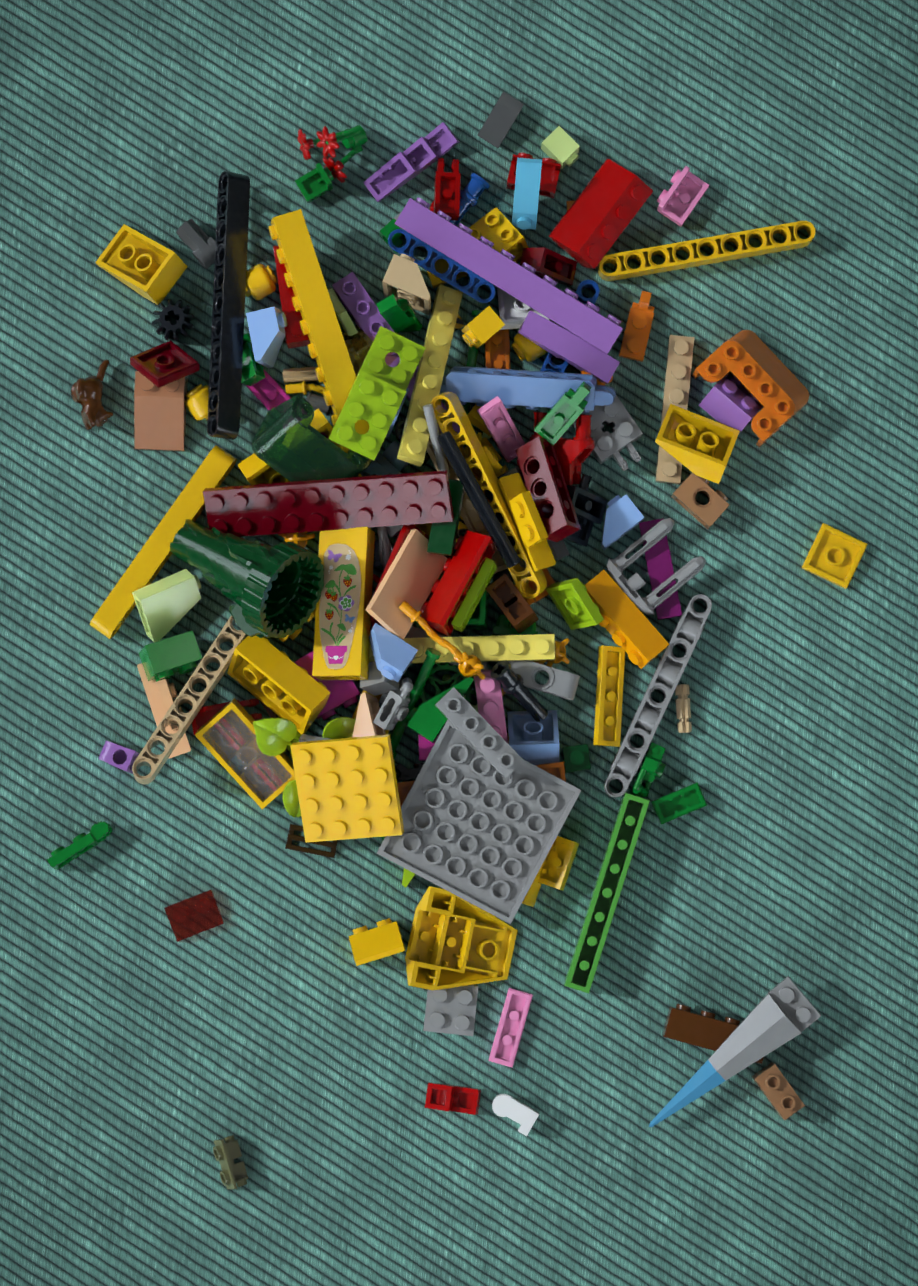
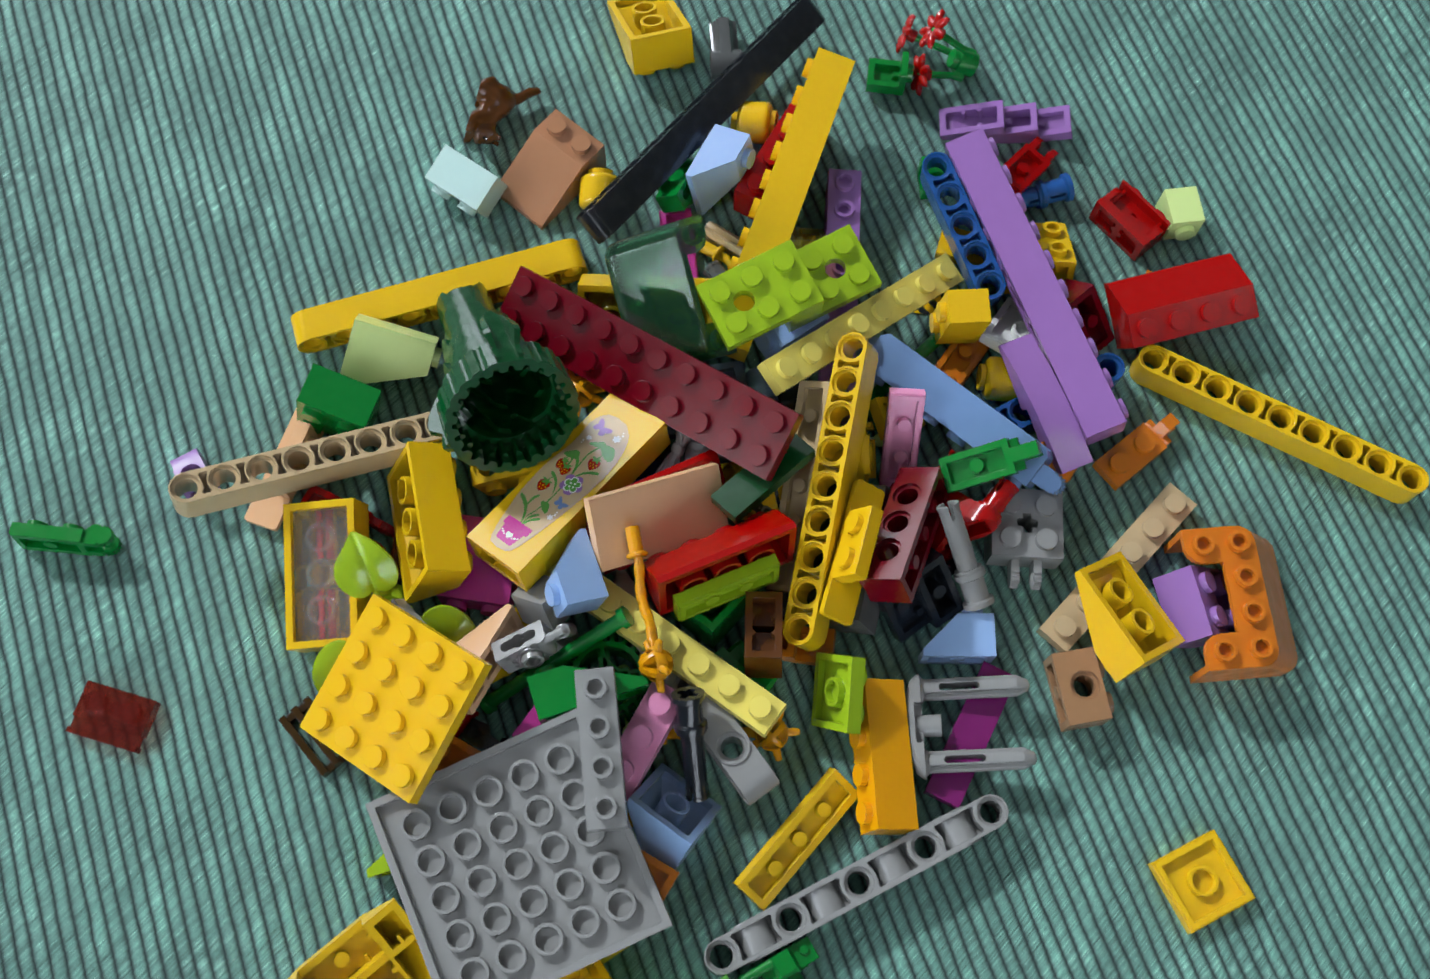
camera: 35 degrees right, 15 degrees down
(117, 459) = (465, 181): none -> light aqua brick
(164, 364) = (591, 123): dark red tile -> none
(165, 326) = (637, 98): black gear -> none
(342, 314) = (816, 201): yellowish green tile -> none
(376, 942) = (277, 920): yellow slope -> none
(399, 314) = (875, 239): green piece -> none
(406, 282) = (908, 214): tan slope -> none
(434, 433) = (818, 380): light grey bar -> none
(478, 499) = (815, 482): black axle -> none
(500, 119) = (1133, 145): dark grey slope -> none
(526, 193) = (1114, 218): medium azure slope -> none
(576, 758) = (699, 882): dark green brick -> none
(596, 481) = (969, 571): none -> light grey pin
(682, 196) = (1285, 348): bright pink bracket -> none
(683, 708) = (877, 925): tan axle -> none

